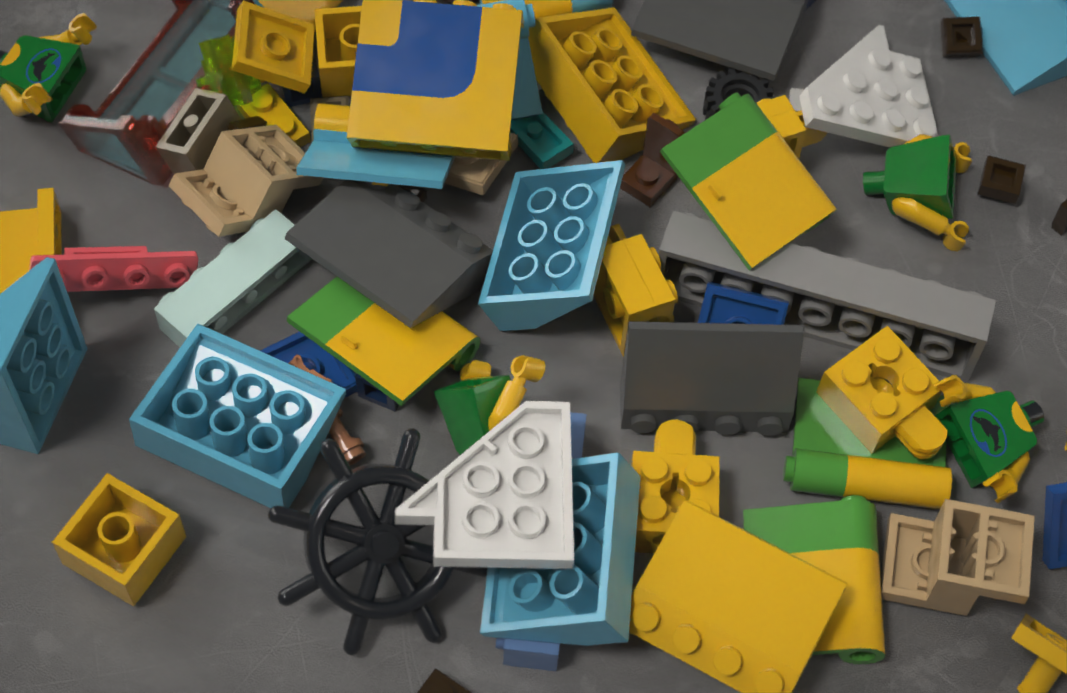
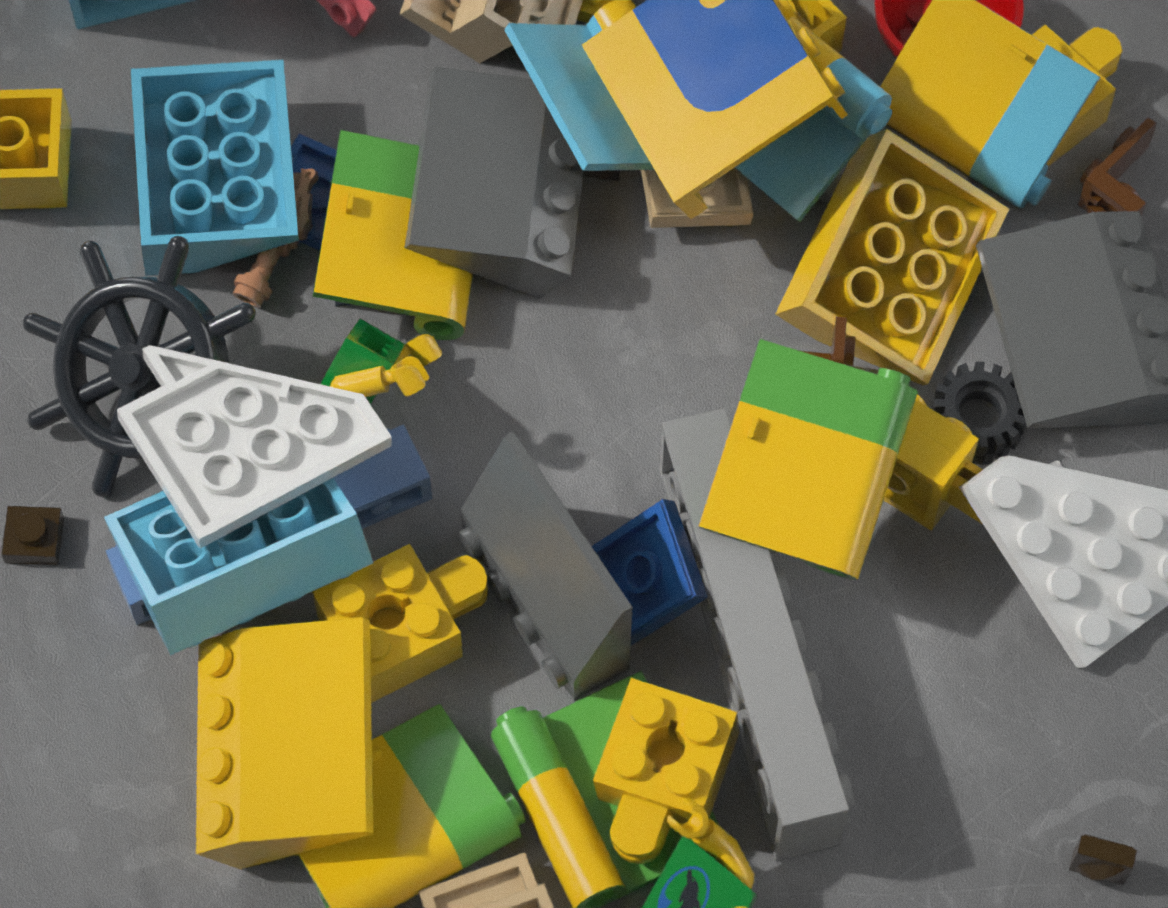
camera: 60 degrees right, 5 degrees up
(232, 281) = (363, 62): light aqua brick -> none
(541, 140) = (770, 241): teal plate -> none
(550, 243) = (610, 312): medium azure slope -> none
(632, 285) = (617, 434): yellow brick -> none
(922, 184) = (1008, 662): green torso -> none
(1001, 179) = (1089, 756): dark brown plate -> none

